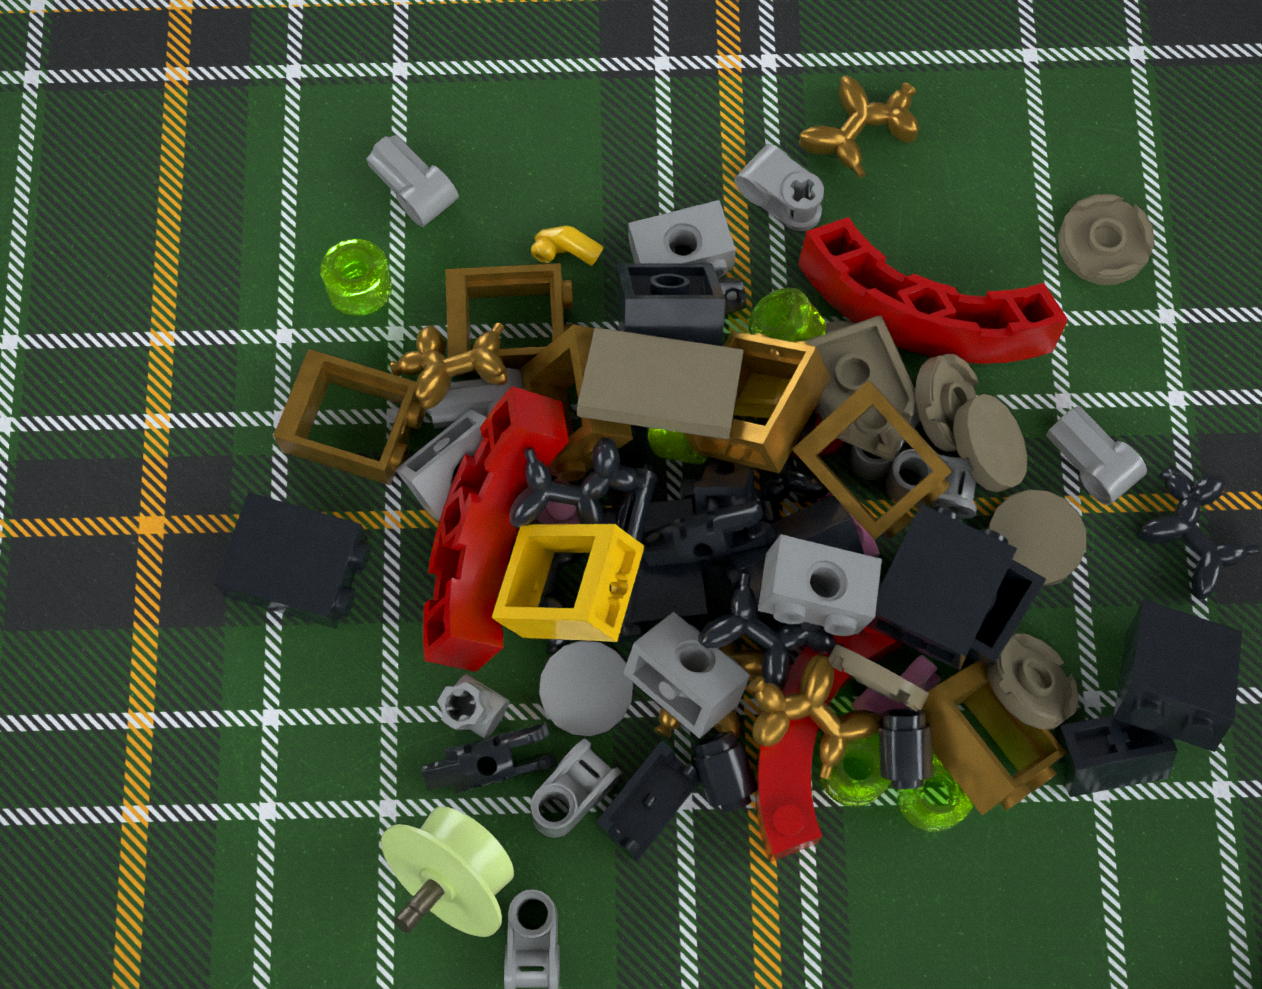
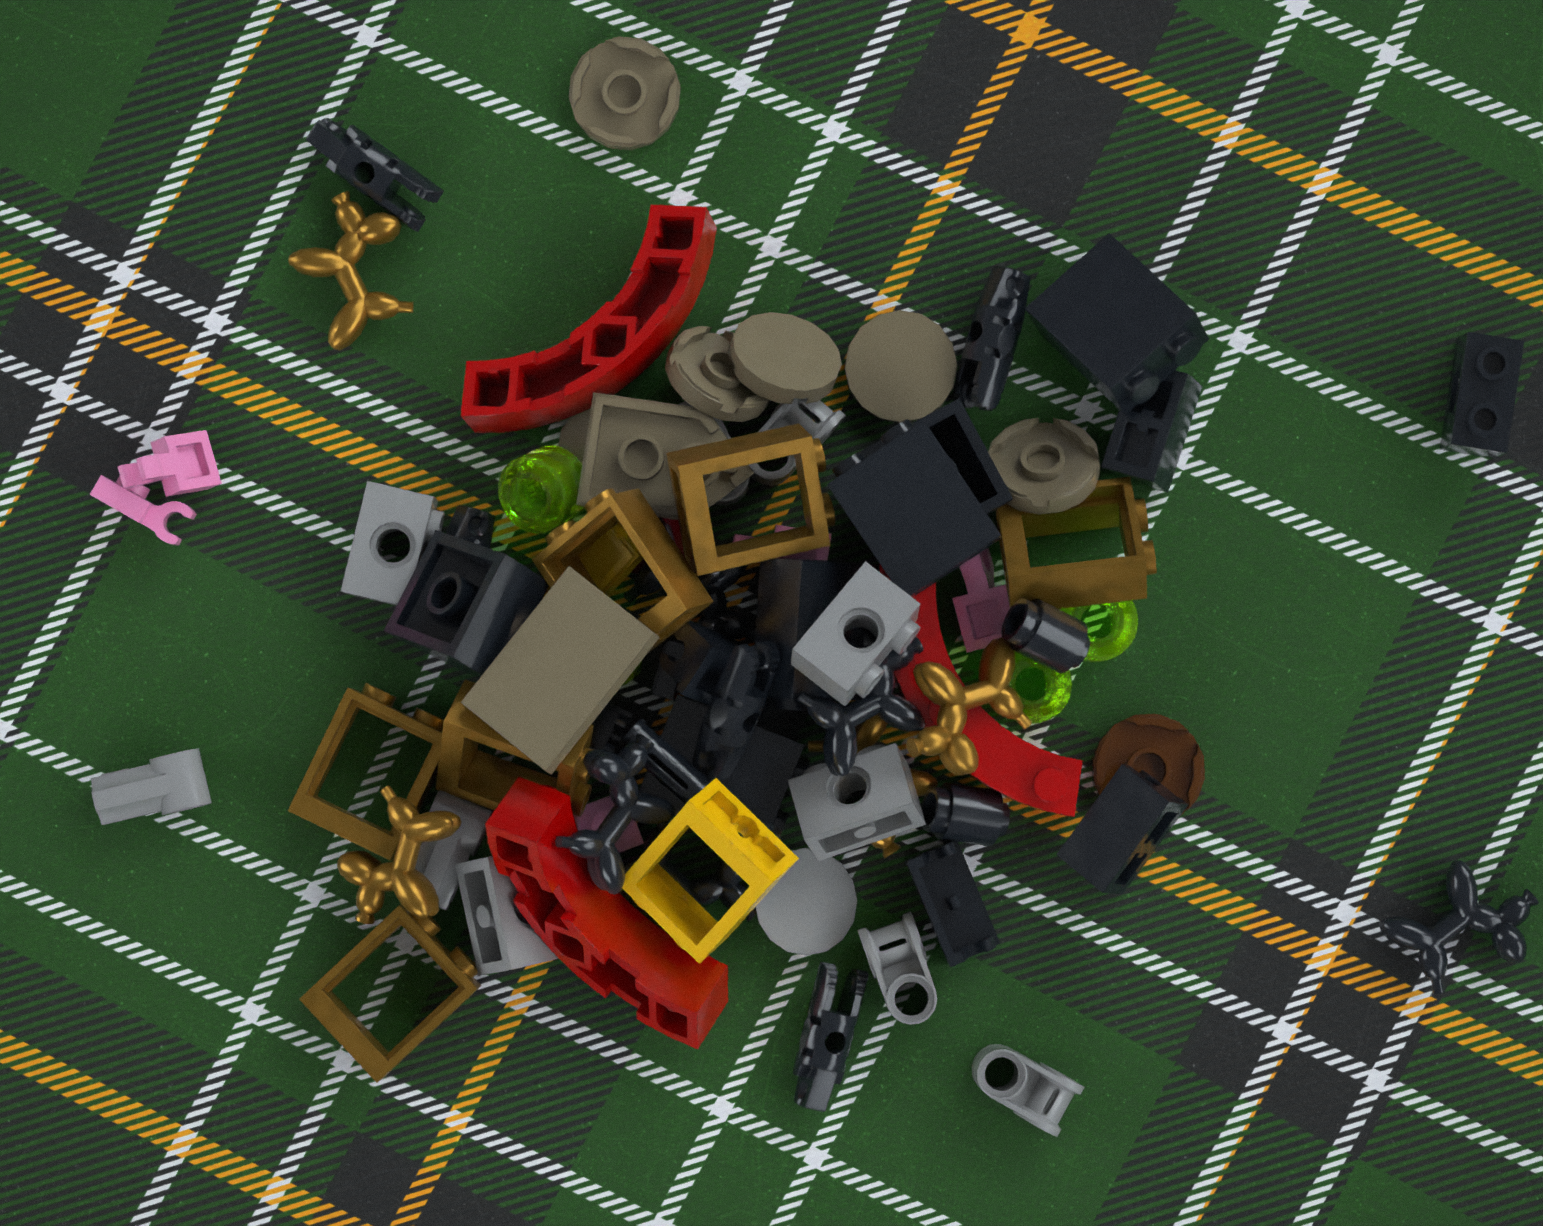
camera: 60 degrees left, 15 degrees up
(293, 561) = (516, 1125): black brick -> none
(353, 259) = (209, 900): clear neon green wheel -> none
(449, 869) = (919, 1130): yellowish green piece -> none
(472, 706) = (768, 1027): light grey piece -> none
(563, 240) = (313, 659): yellow arm -> none
(610, 62) = (133, 504): none -> bright pink plate
(657, 77) = (179, 461): none -> bright pink plate
(782, 186) = (370, 403): light grey piece -> none
(784, 905) = (1122, 830): none -> black hinge
(843, 904) = (1157, 747): none -> reddish brown tile
(878, 678) = (969, 626): dark tan tile -> none
(941, 99) = (350, 158): none -> black hinge
(1102, 592) = (992, 339): none -> black hinge
(1104, 465) = (866, 253): light grey piece -> none
(1183, 525) = (970, 213): black piece -> none

